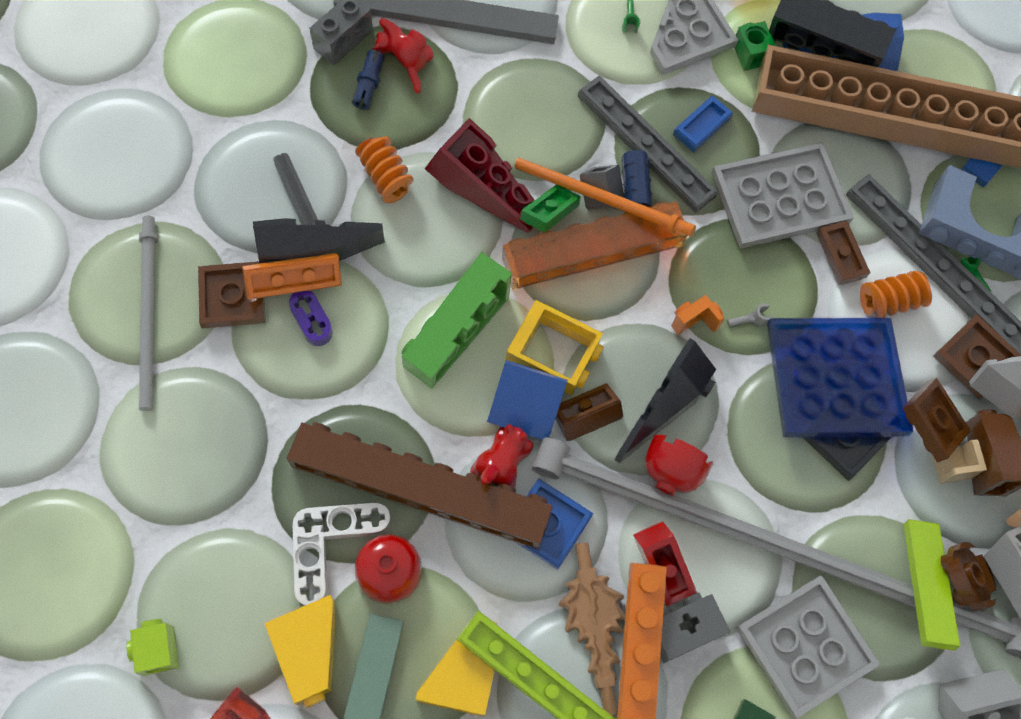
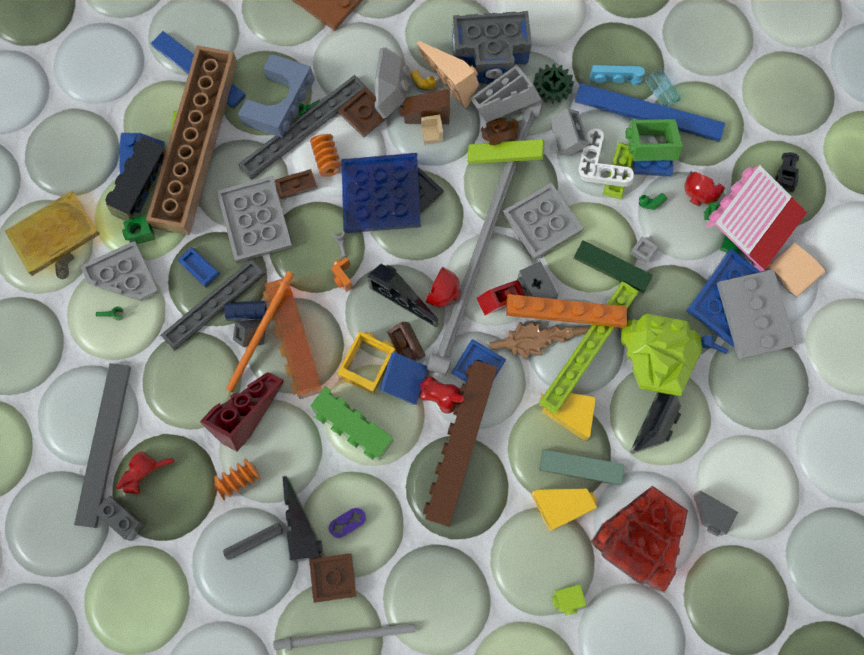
camera: 85 degrees left, 5 degrees up
(292, 275) = (322, 534): orange tile -> none
(317, 537) = (496, 506): white beam -> none
(368, 80) = (162, 496): dark blue pin -> none
(388, 569) = (511, 460): red cylinder -> none
(550, 208) = (267, 366): green plate -> none
(936, 420) = (408, 139): reddish brown plate -> none

